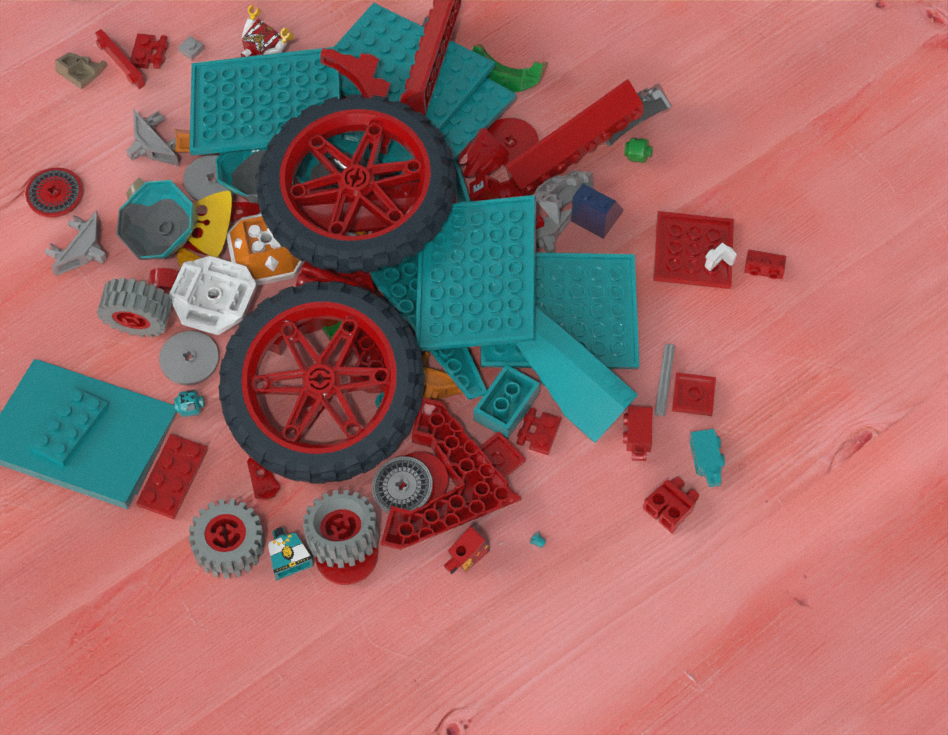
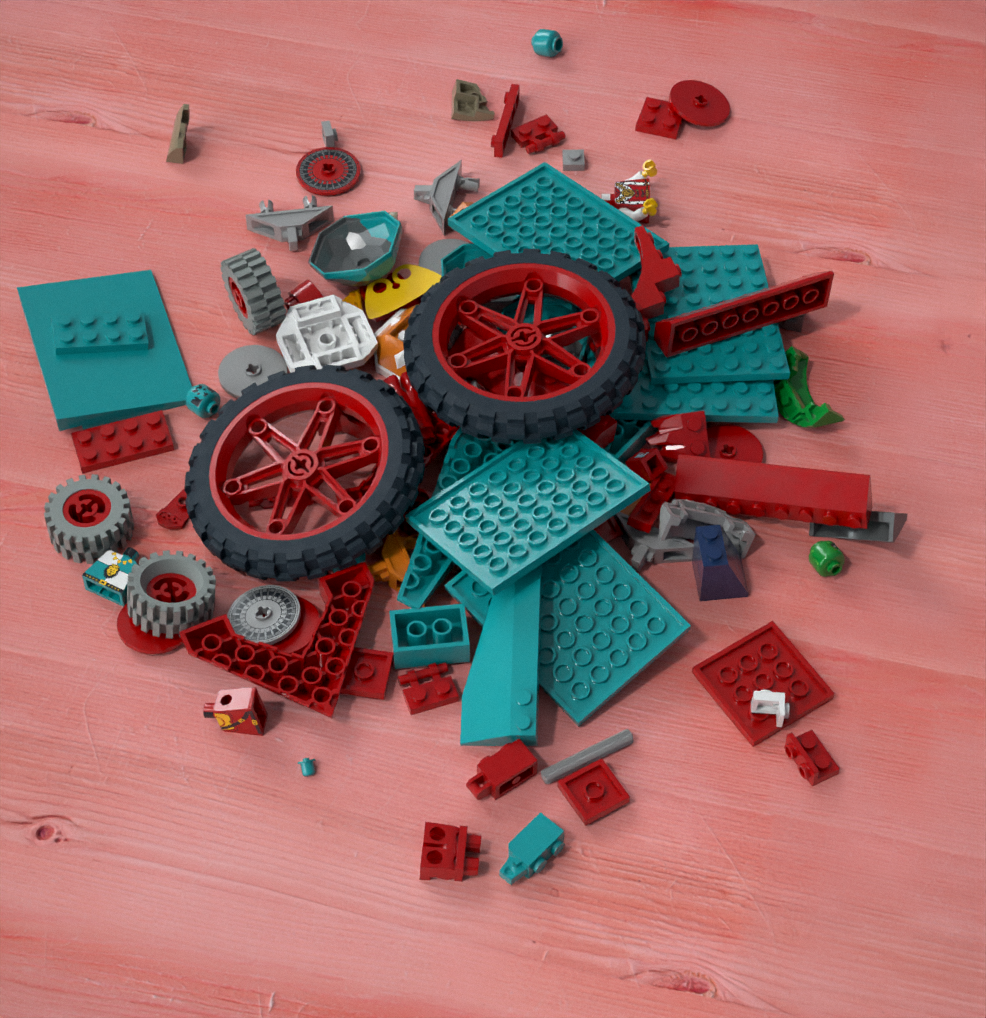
camera: 50 degrees right, 10 degrees down
(24, 169) = (328, 134): none -> light grey plate

